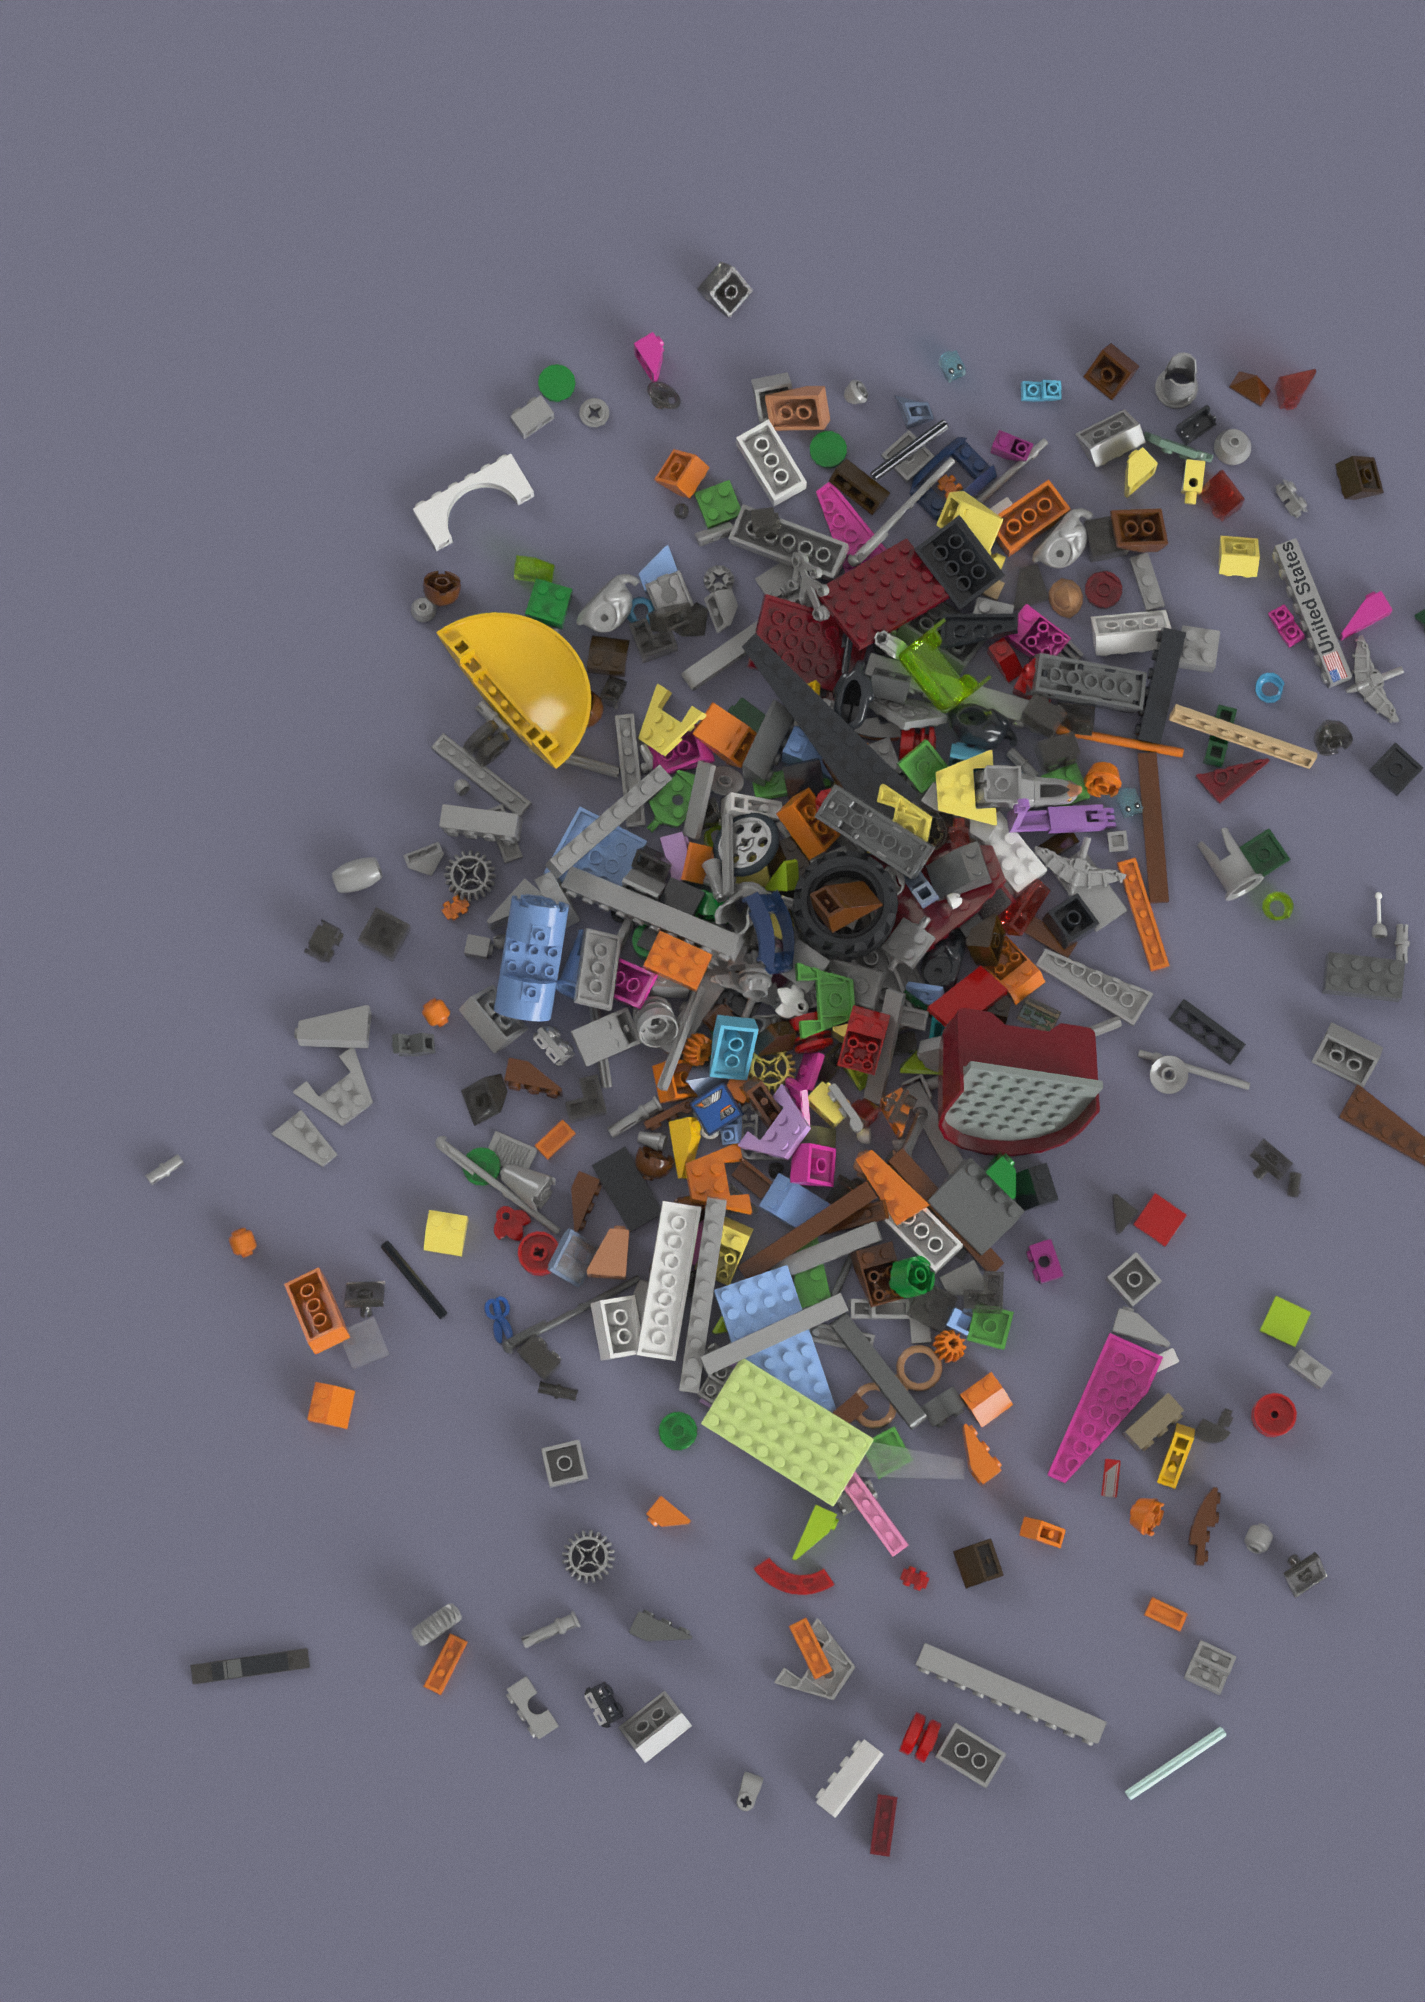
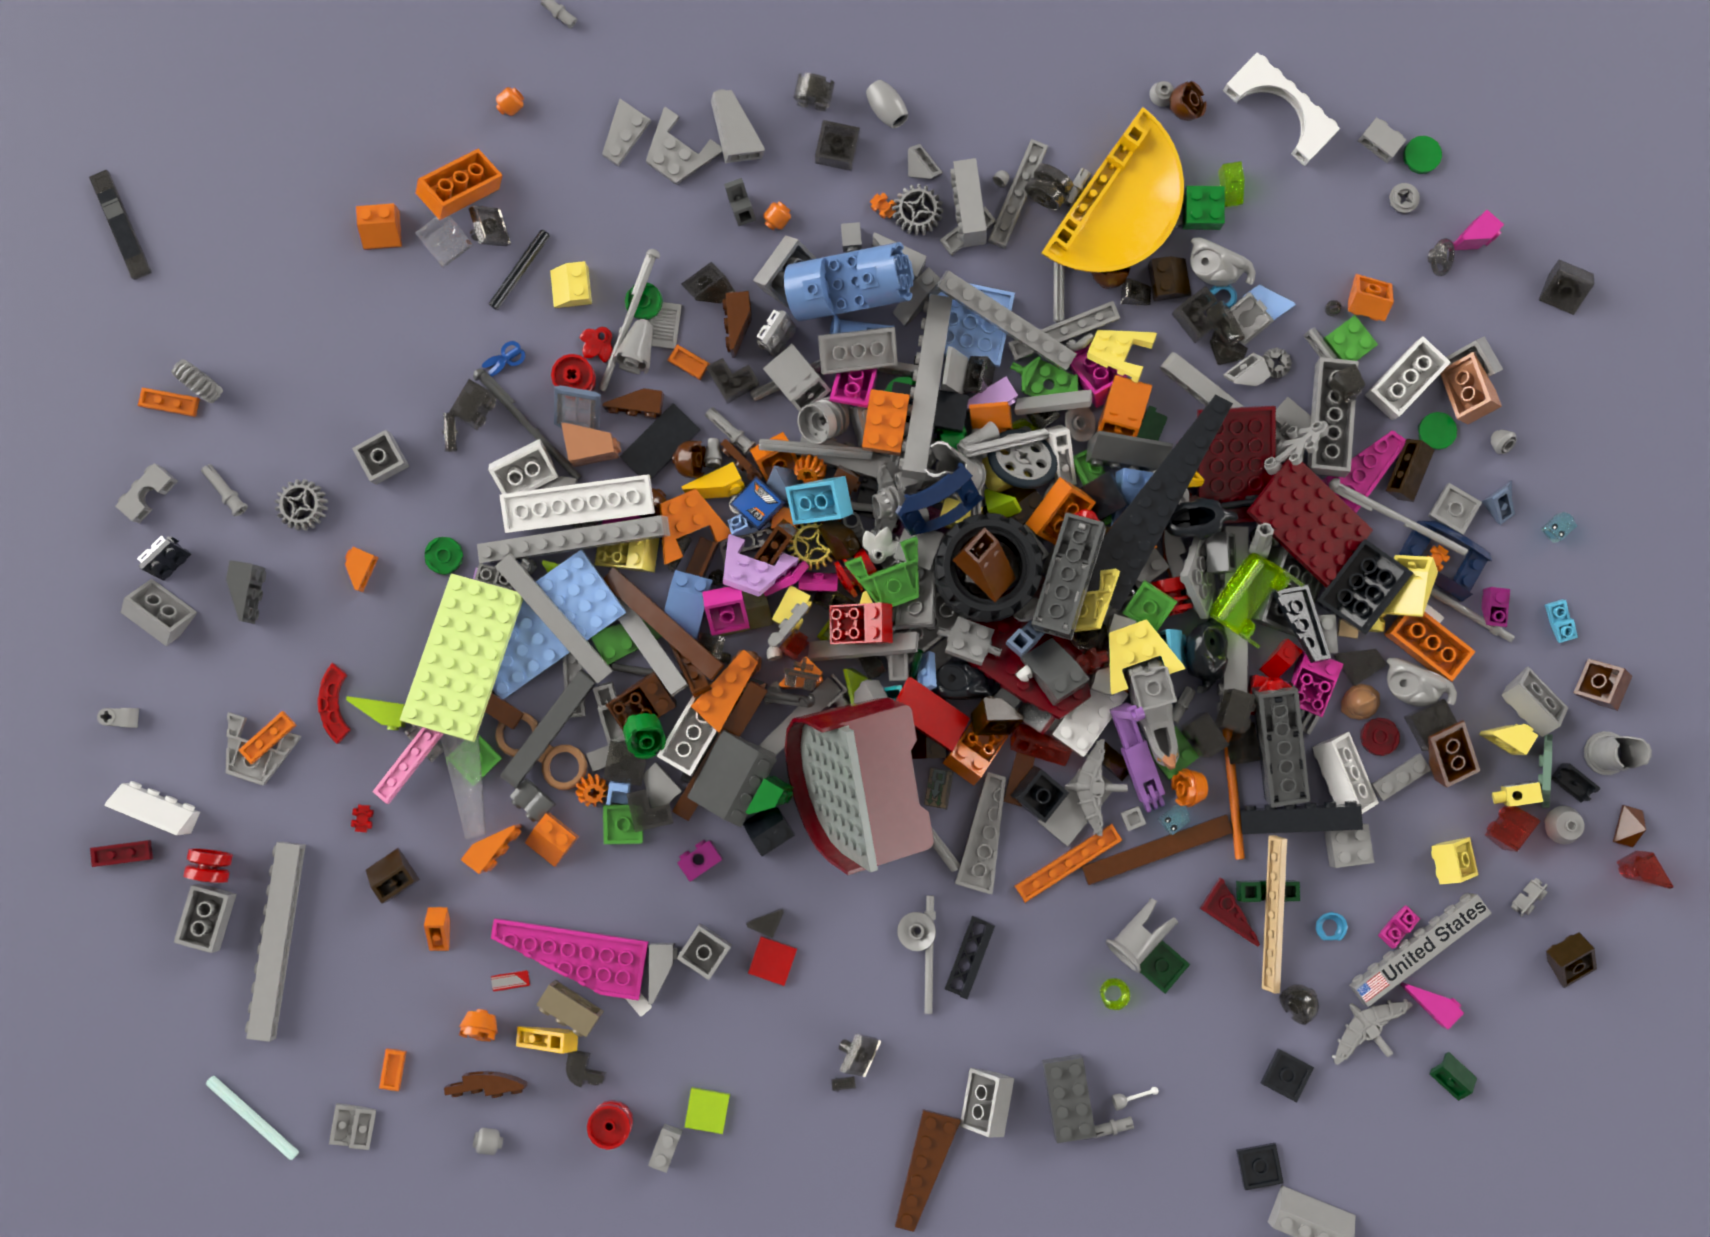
camera: 70 degrees right, 5 degrees up
(909, 450) = (1462, 508): black axle -> none
(1304, 1573) = (463, 1195): clear smoke tile -> none

